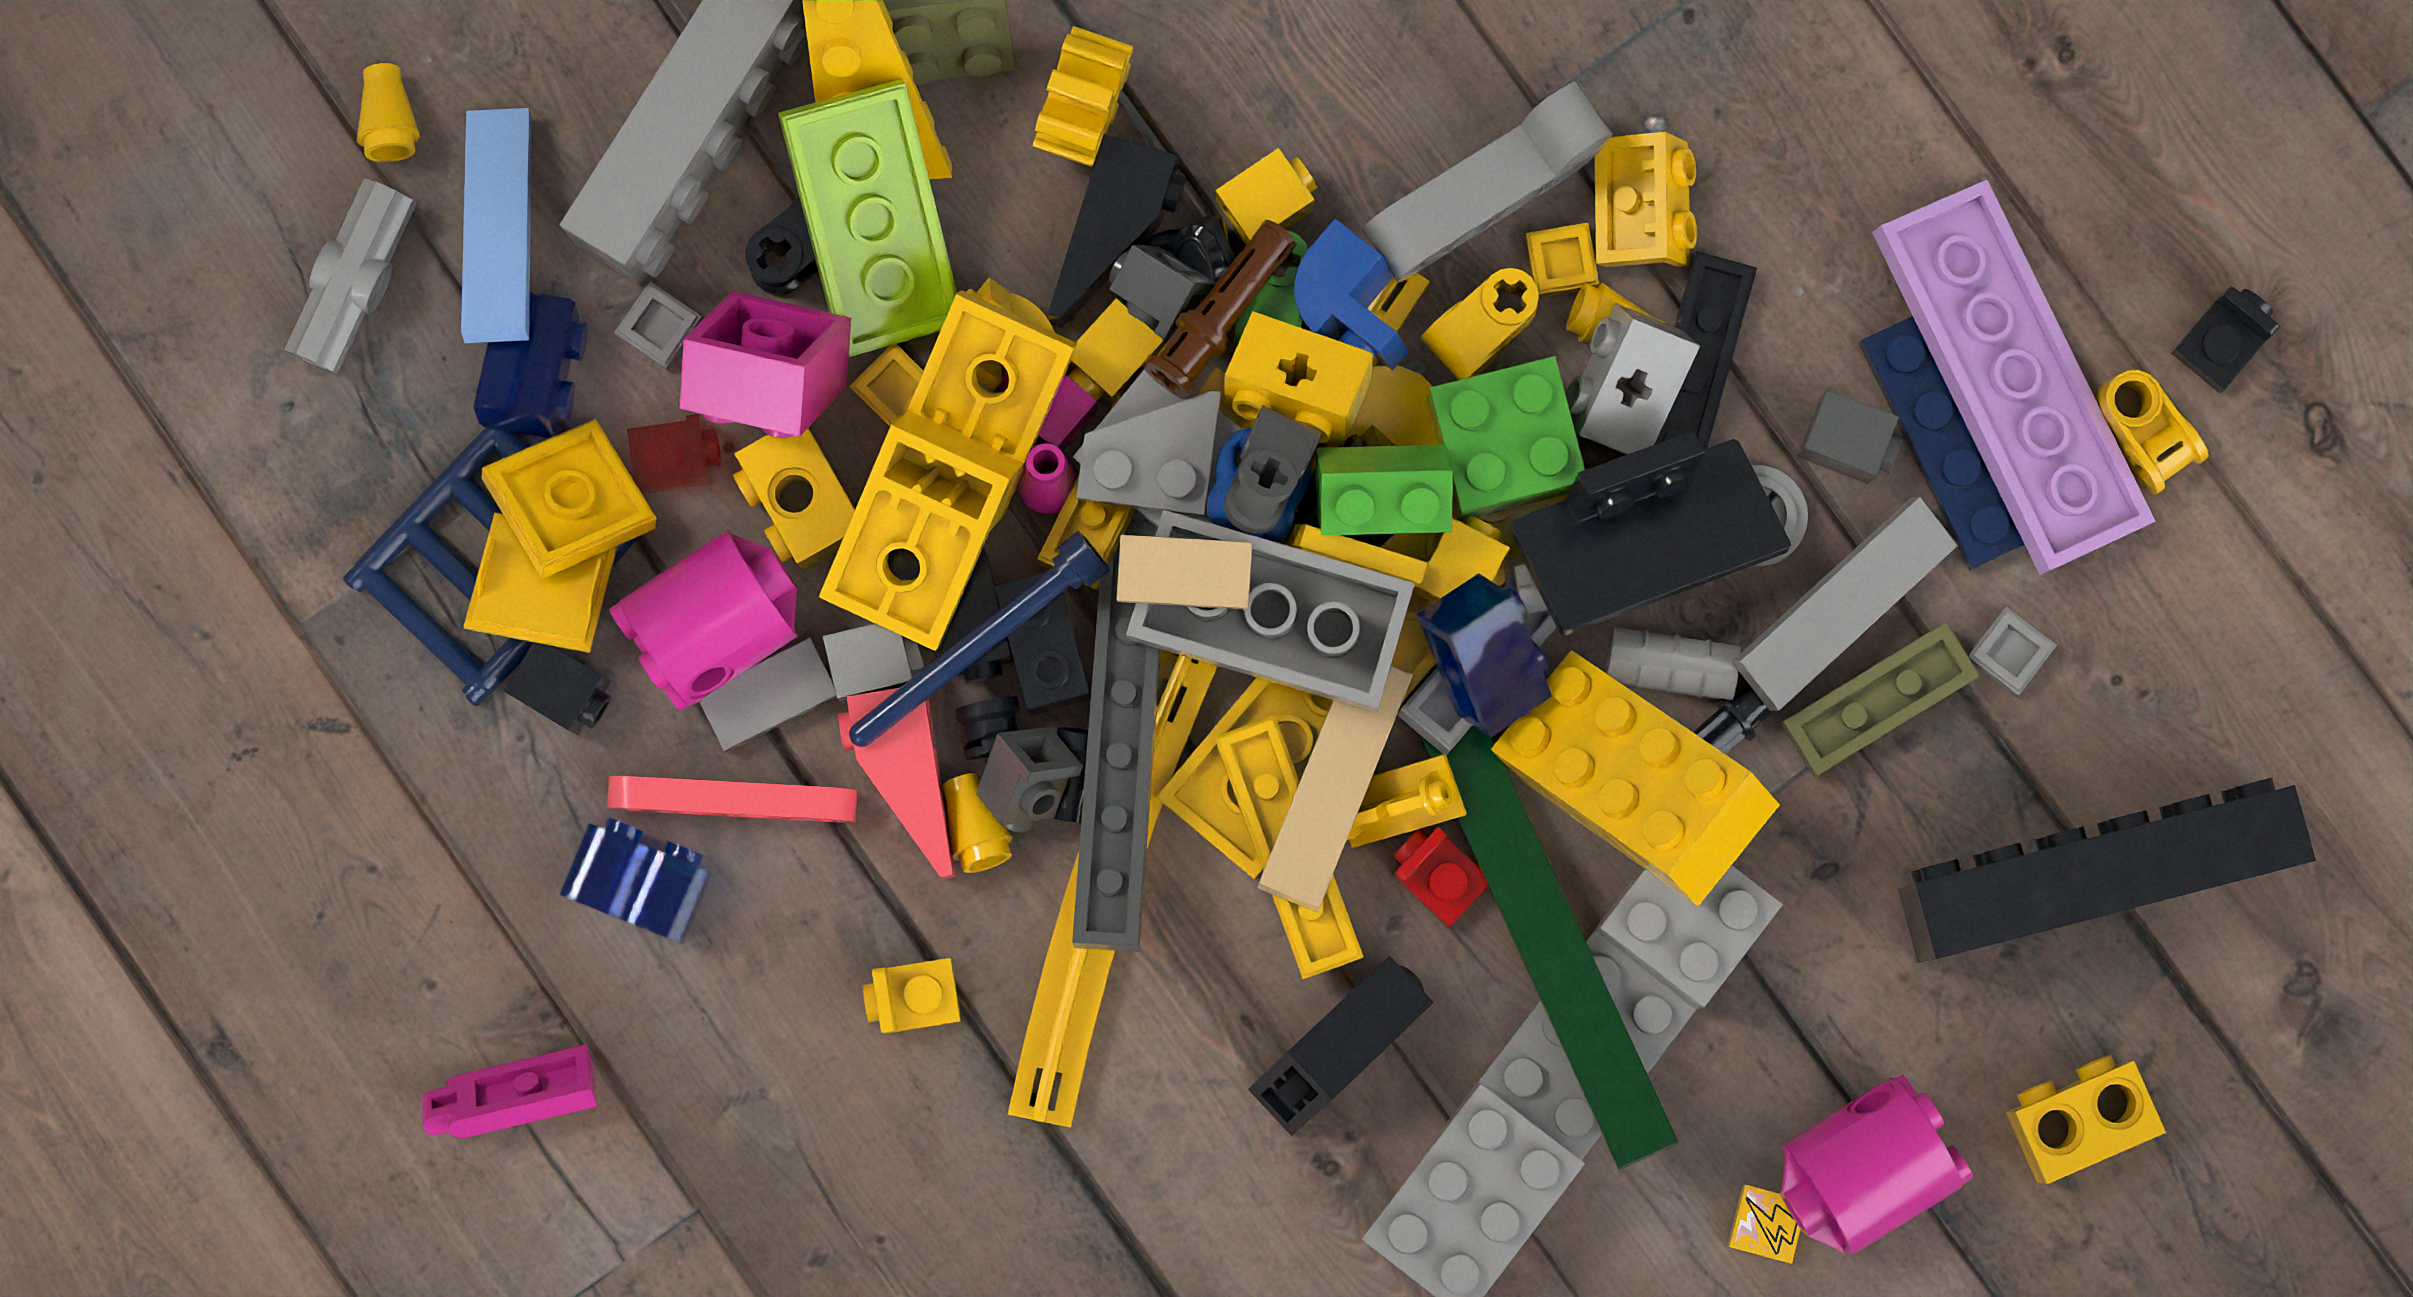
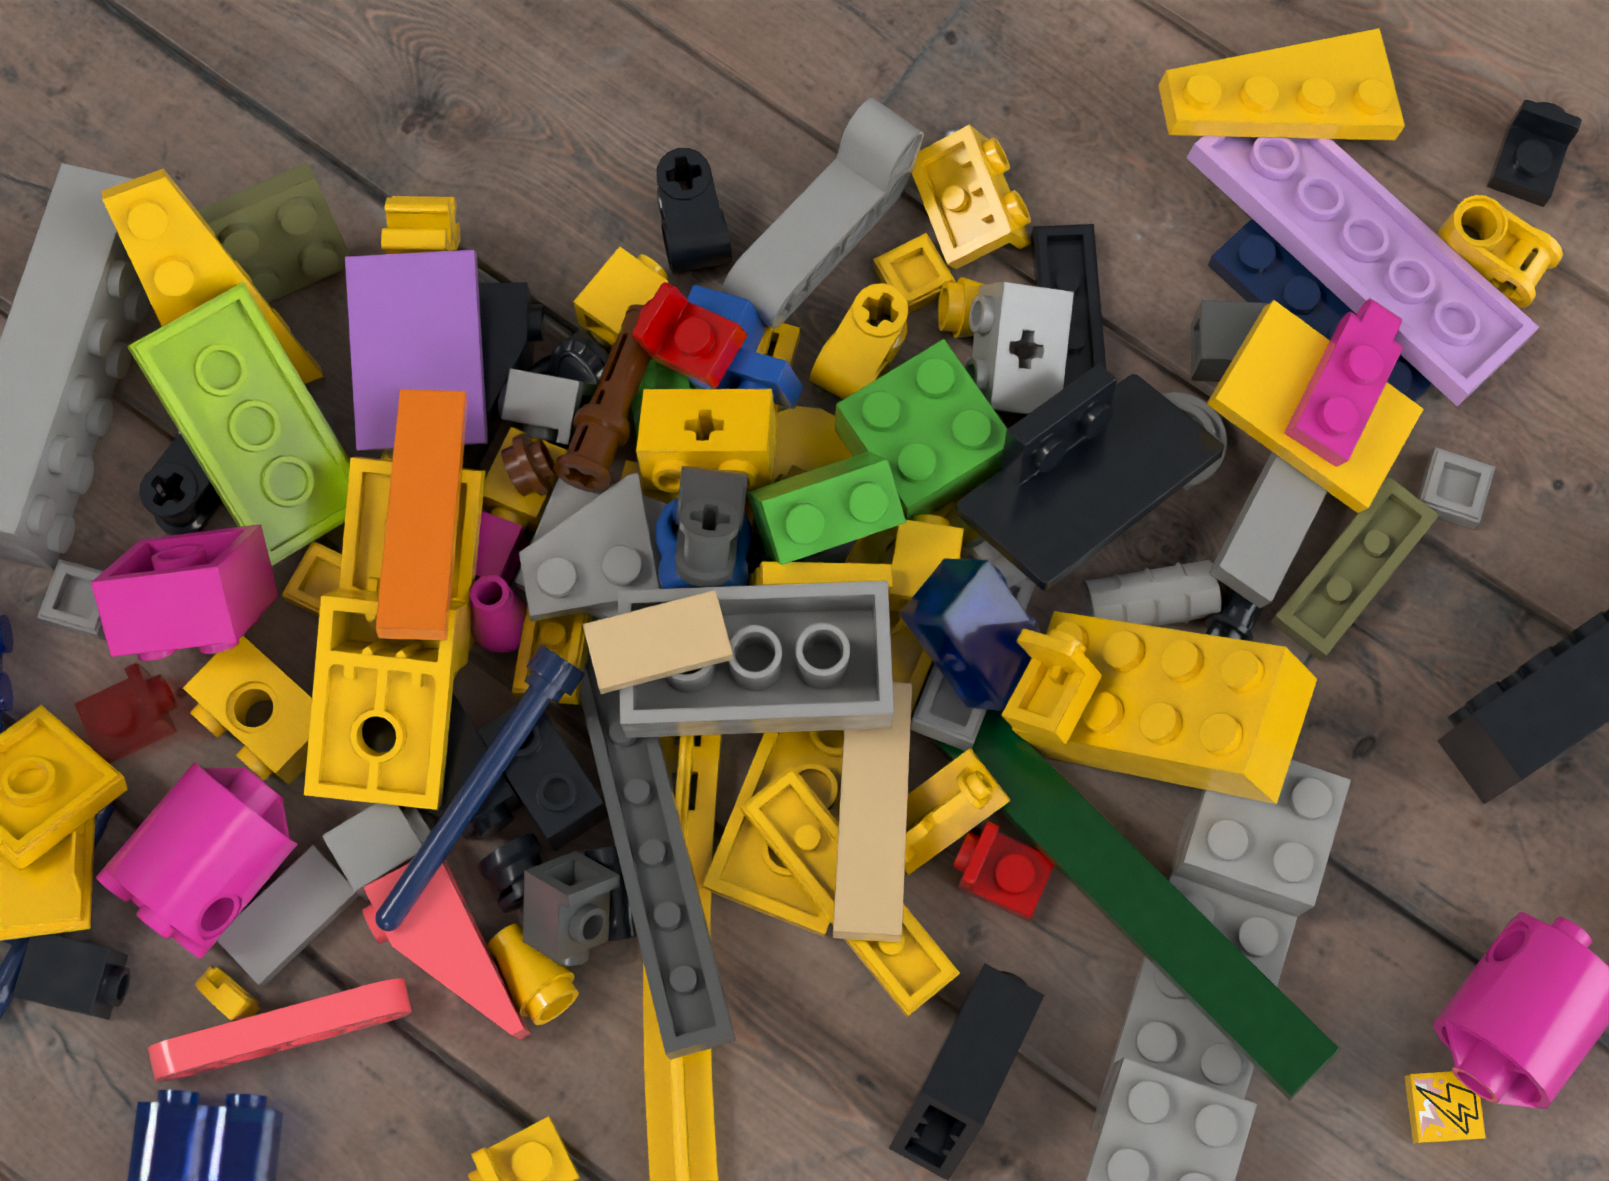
camera: 25 degrees left, 10 degrees down
(692, 749) = (227, 994): none -> yellow tile
(1007, 375) = (422, 515): none -> orange tile
(1049, 200) = (417, 330): none -> medium lavender tile
(1121, 348) = (529, 465): none -> reddish brown plate
(1311, 276) = (687, 336): none -> red bracket
(1360, 139) = (691, 219): none -> black piece
(1534, 729) = (1053, 685): none -> yellow bracket
(1896, 533) = (1266, 387): none -> yellow tile
(1933, 522) = (1347, 383): none -> dark pink hinge
(2010, 200) = (1295, 91): none -> yellow wing

